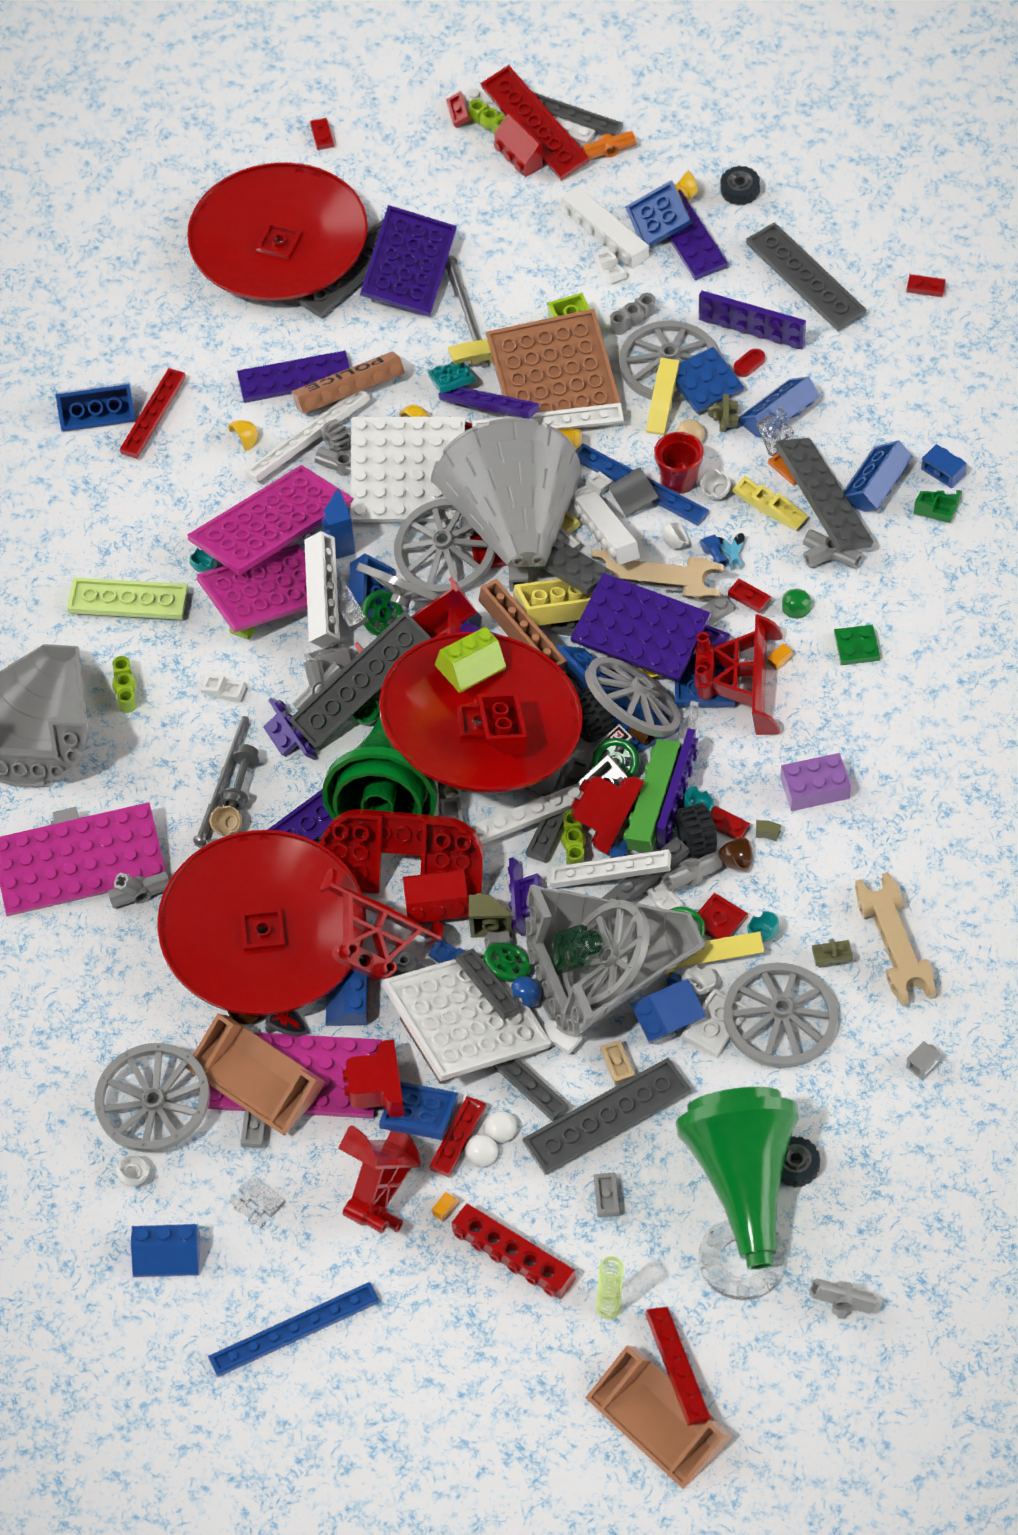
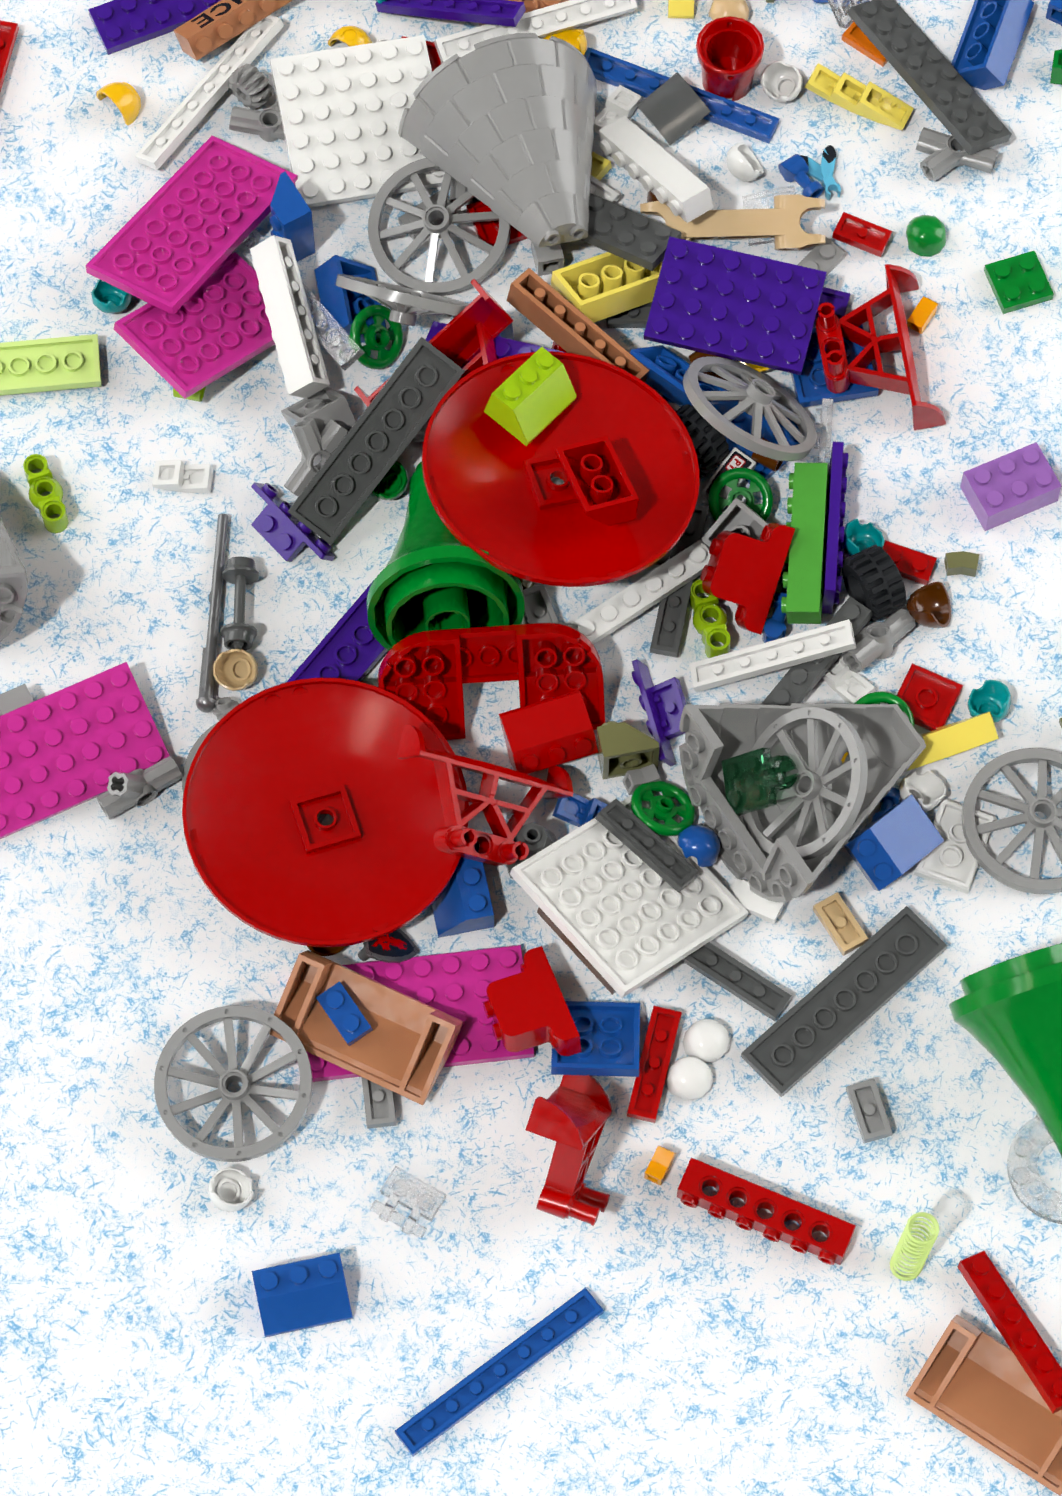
camera: 15 degrees left, 10 degrees up
(242, 1062) = (344, 1013): none -> blue plate

